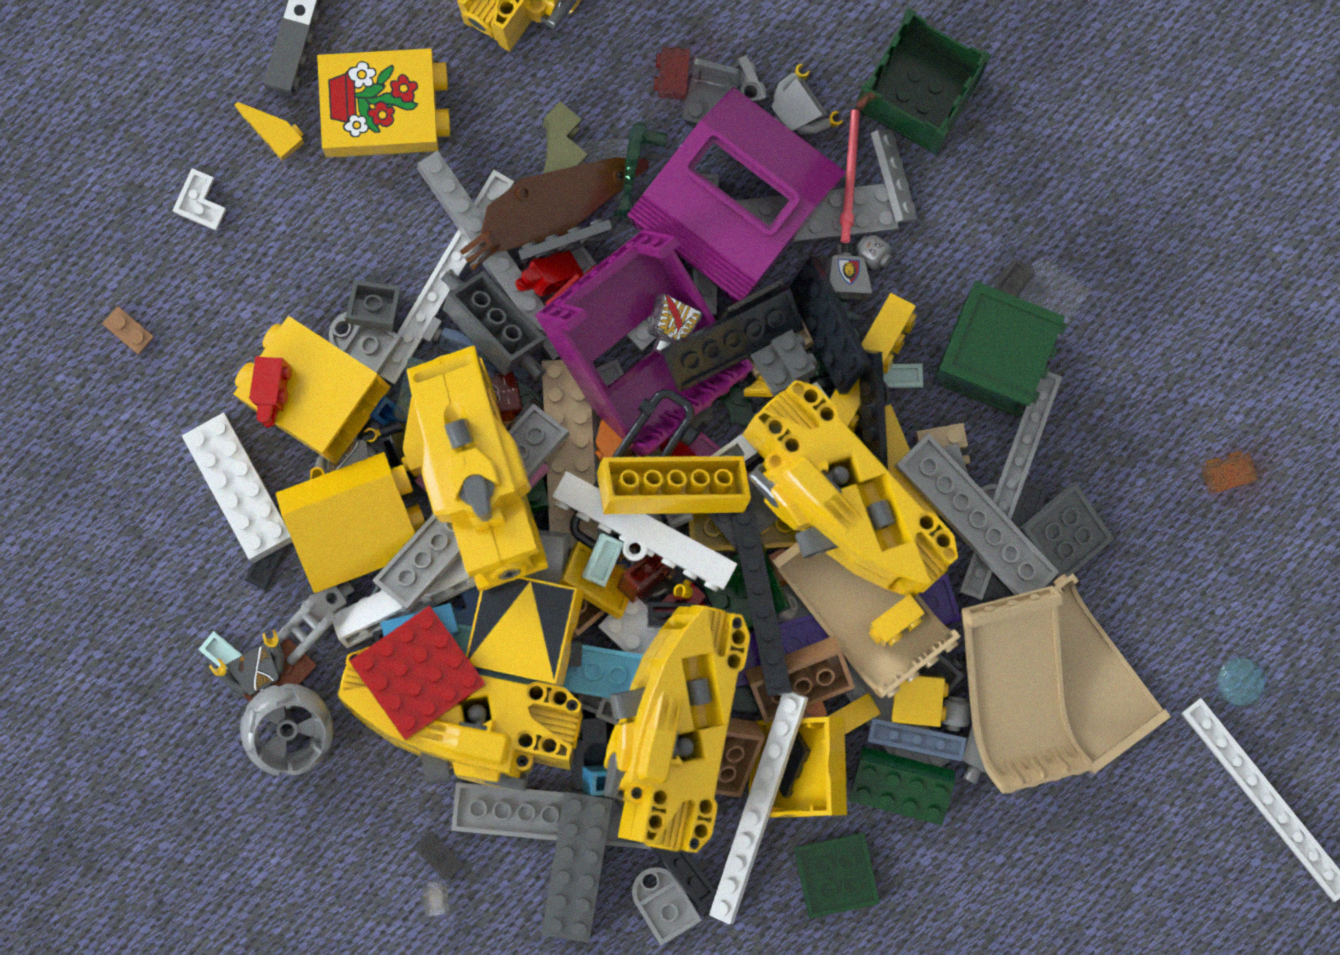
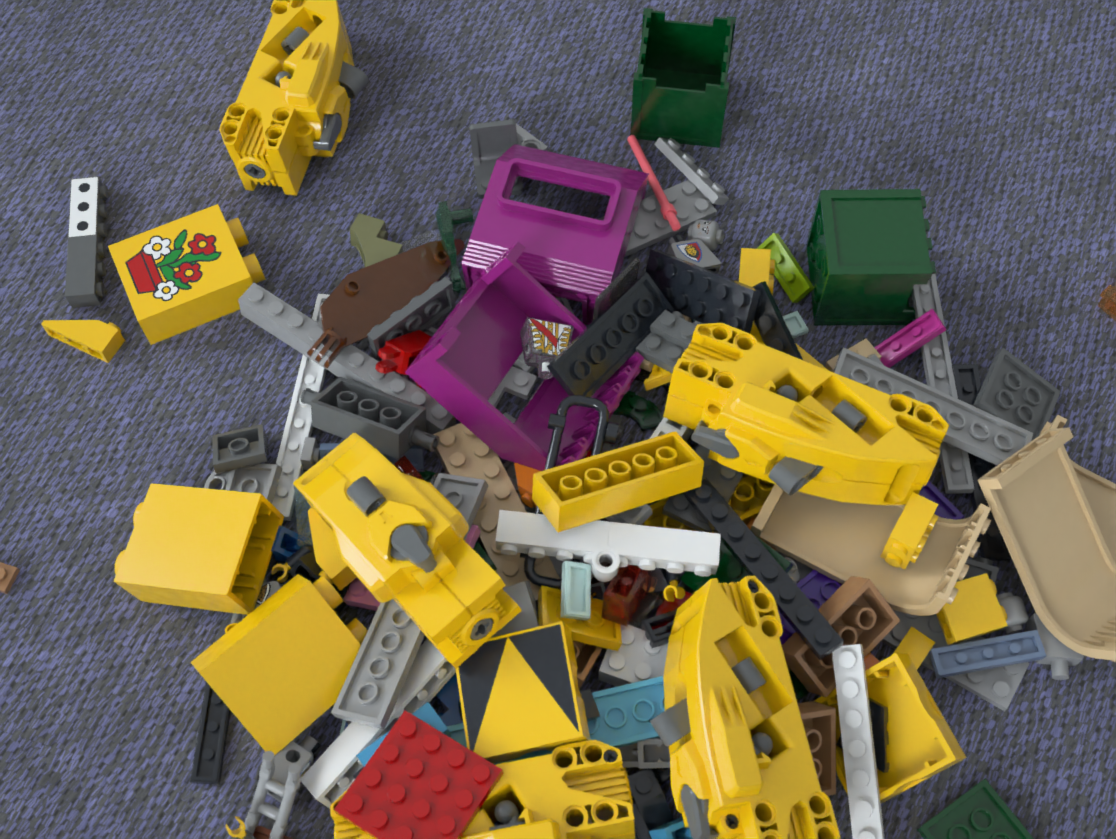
camera: 15 degrees left, 20 degrees down
(192, 201) = (27, 428): white plate -> none
(237, 488) = (153, 683): white brick -> none
(269, 388) = (148, 553): red hinge -> none
(673, 73) = (455, 162): clear red brick -> none
(799, 107) = (583, 143): light grey torso -> none
(902, 786) = (1002, 707): dark green brick -> none
(932, 316) = (787, 269): none -> lime plate
(1000, 438) = (910, 338): none -> dark pink tile

